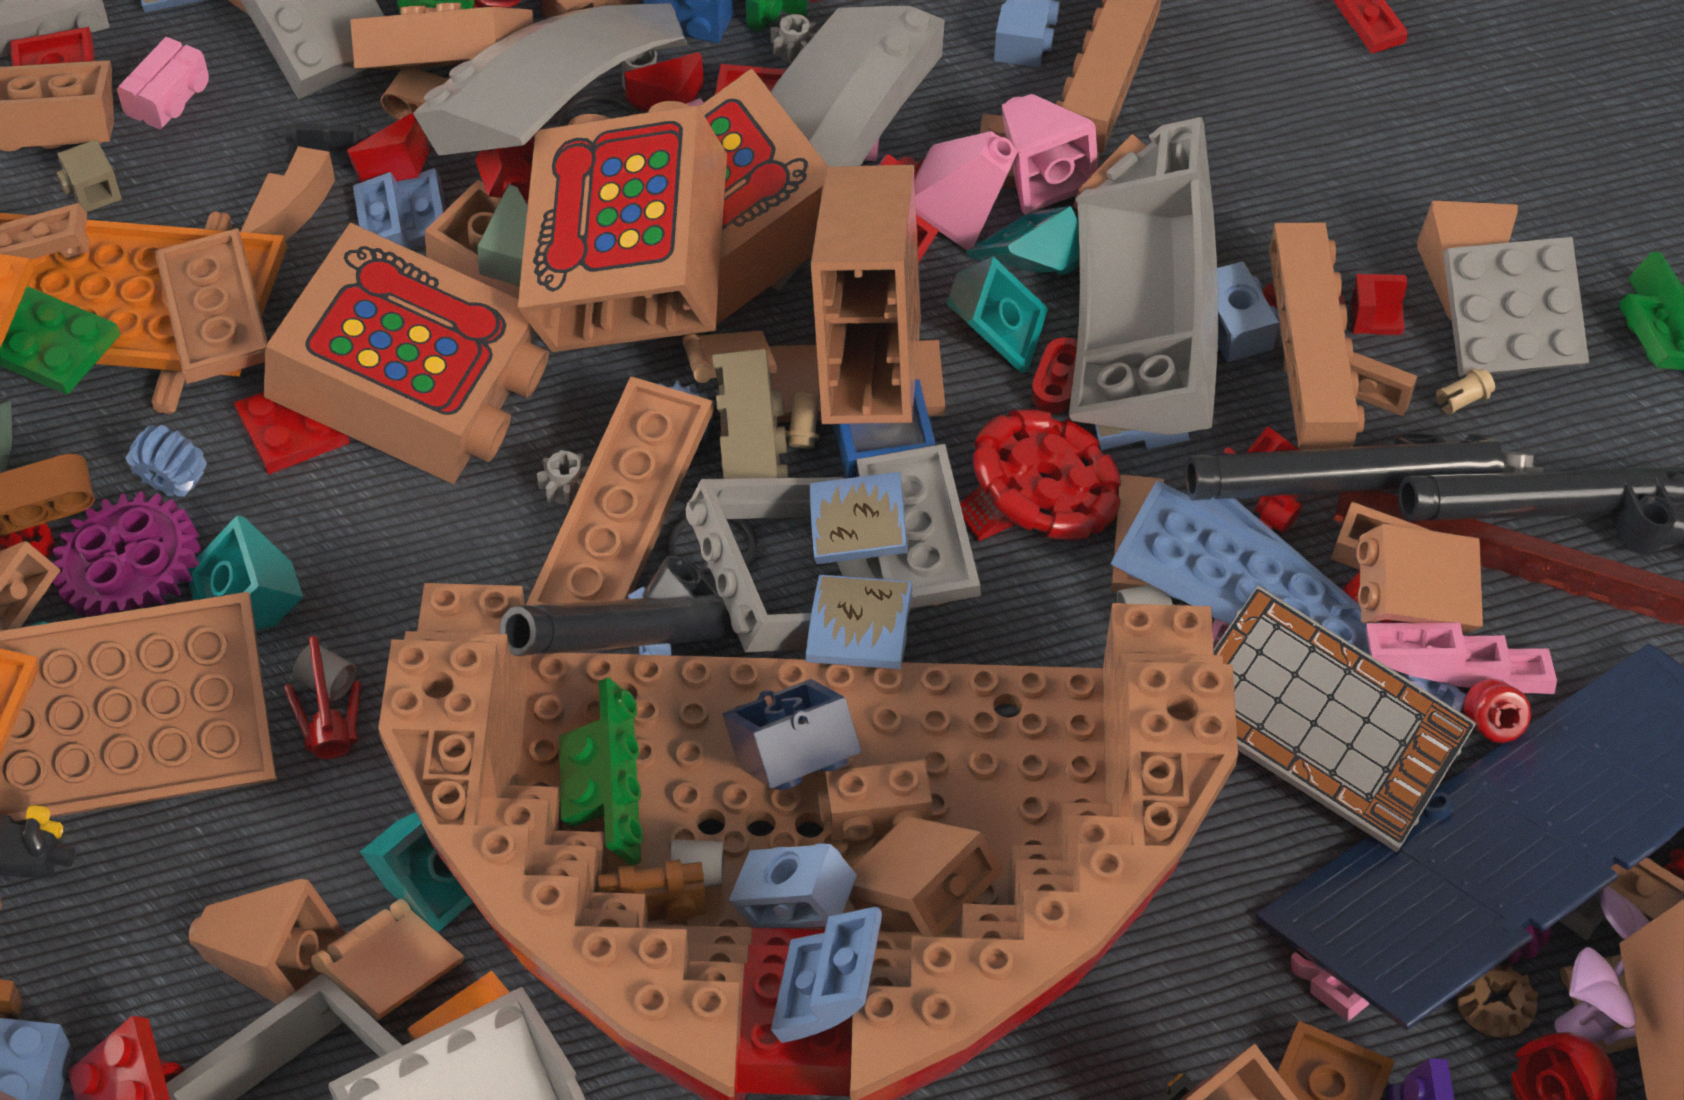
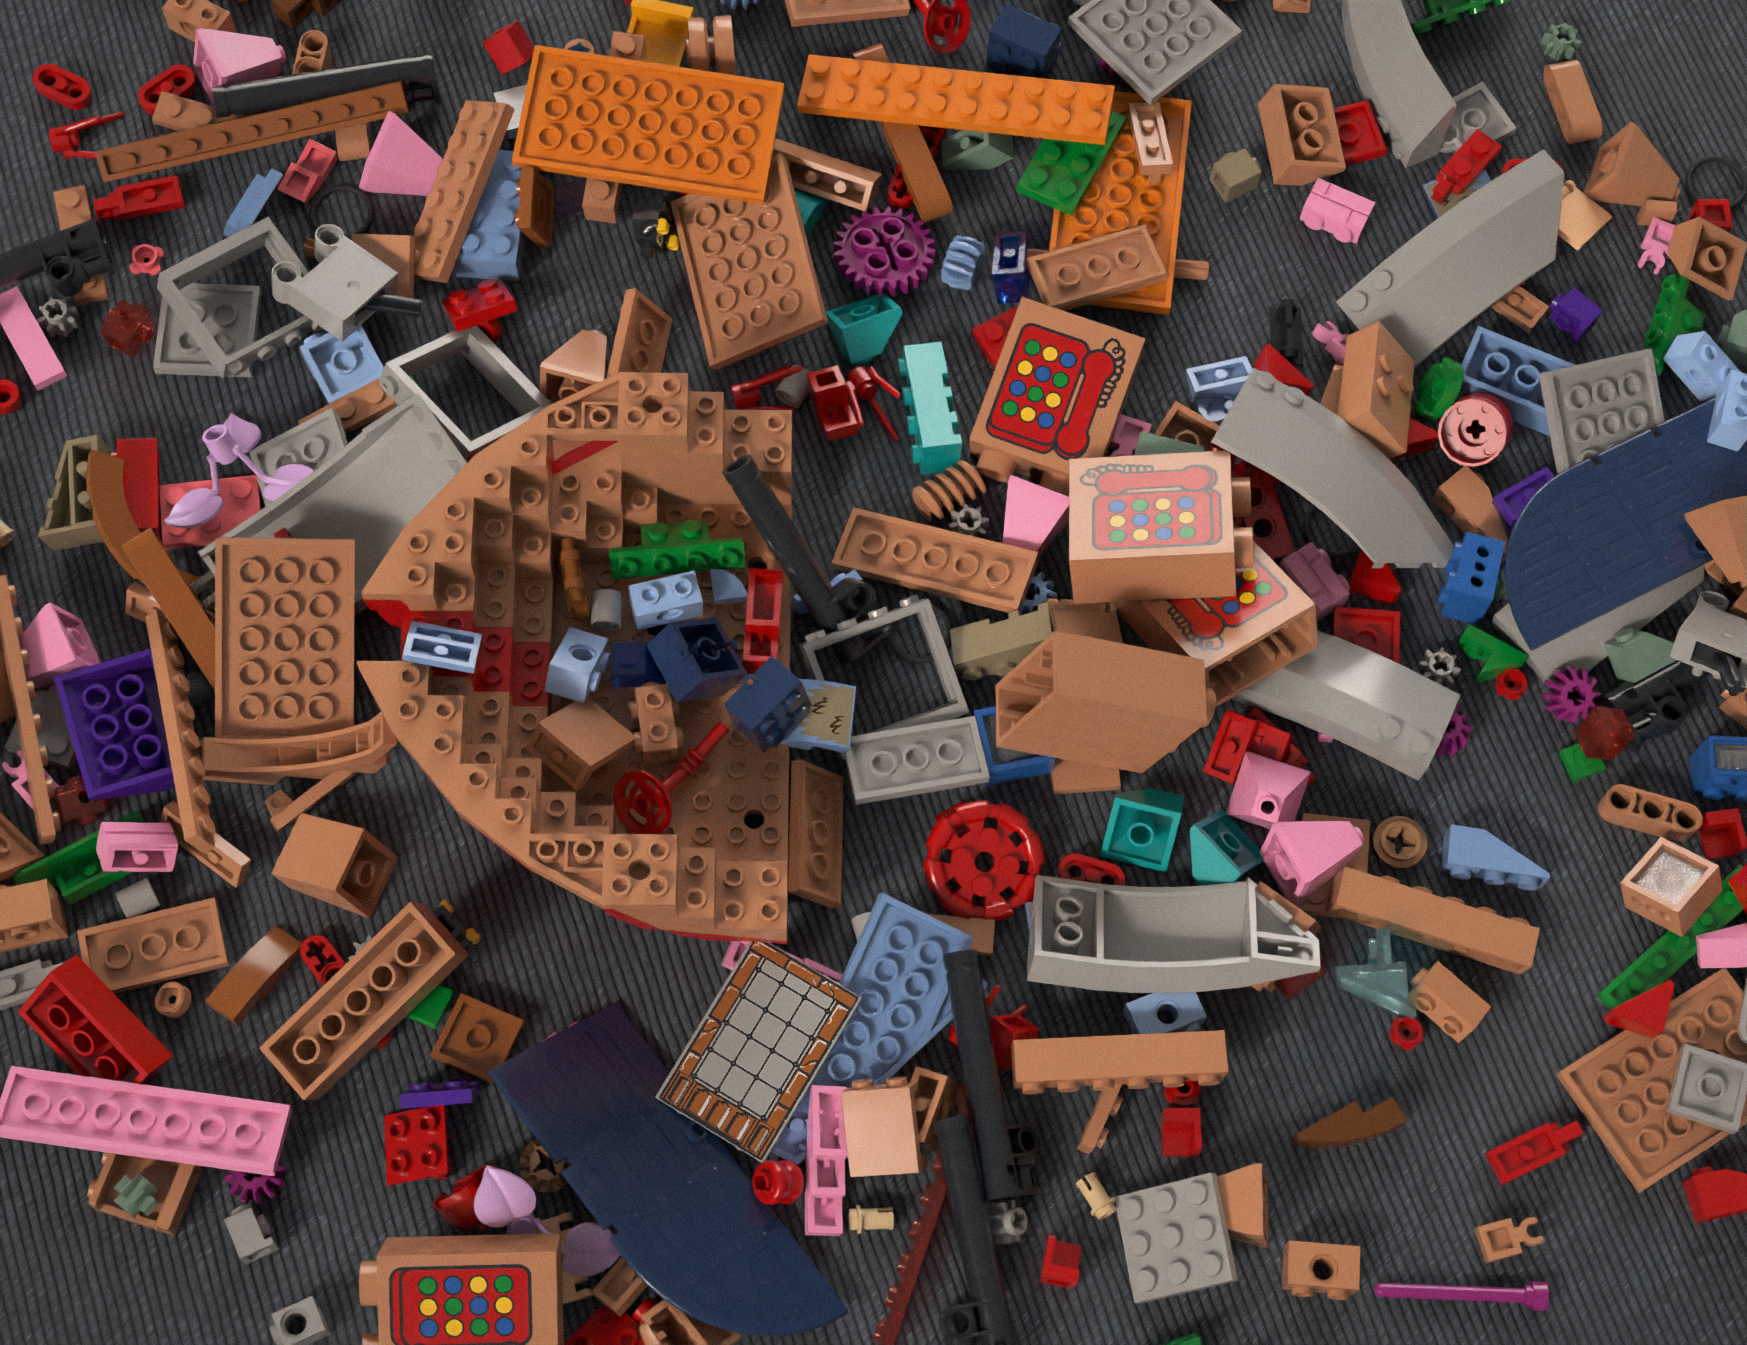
camera: 85 degrees right, 15 degrees up
(191, 405) = (1009, 268): none -> clear blue slope
(271, 865) = (640, 336): none -> nougat plate
(292, 199) = (1220, 312): nougat slope -> none
(339, 586) = (862, 384): none -> red plant
(359, 91) = (1333, 338): none -> bright pink plate
(363, 626) = (831, 403): none -> red brick
(385, 506) = (930, 407): none -> wedge
(513, 495) = (948, 488): none -> nougat piece
(565, 399) = (1033, 515): none -> bright pink slope
(664, 718) = (726, 587): none -> medium blue tile
(688, 782) = (665, 600): none -> light blue brick
(721, 668) = (762, 617): none -> red slope
(788, 816) = (633, 665): none -> clear blue slope
(858, 518) = (912, 713): slope -> none
(865, 643) = (768, 705): none -> dark blue brick
(994, 802) = (659, 797): none -> red dish
(999, 81) = (1412, 835): none -> medium nougat gear
(1012, 651) = (815, 834): none -> nougat tile
(1177, 95) = (1381, 979): none -> clear light blue piece
(1205, 57) = (1447, 1001): none -> nougat brick
(1238, 102) = (1415, 1032): none -> red plate
(1355, 153) = (1352, 1126): none -> reddish brown slope
(1467, 43) = (1502, 1240): none -> nougat plate
(1525, 24) = (1533, 1295): none -> magenta piece
(1526, 627) = (871, 1218): none -> tan pin
(1529, 180) = (1340, 1260): none -> nougat brick
(1554, 435) = (1060, 1263): none -> red panel

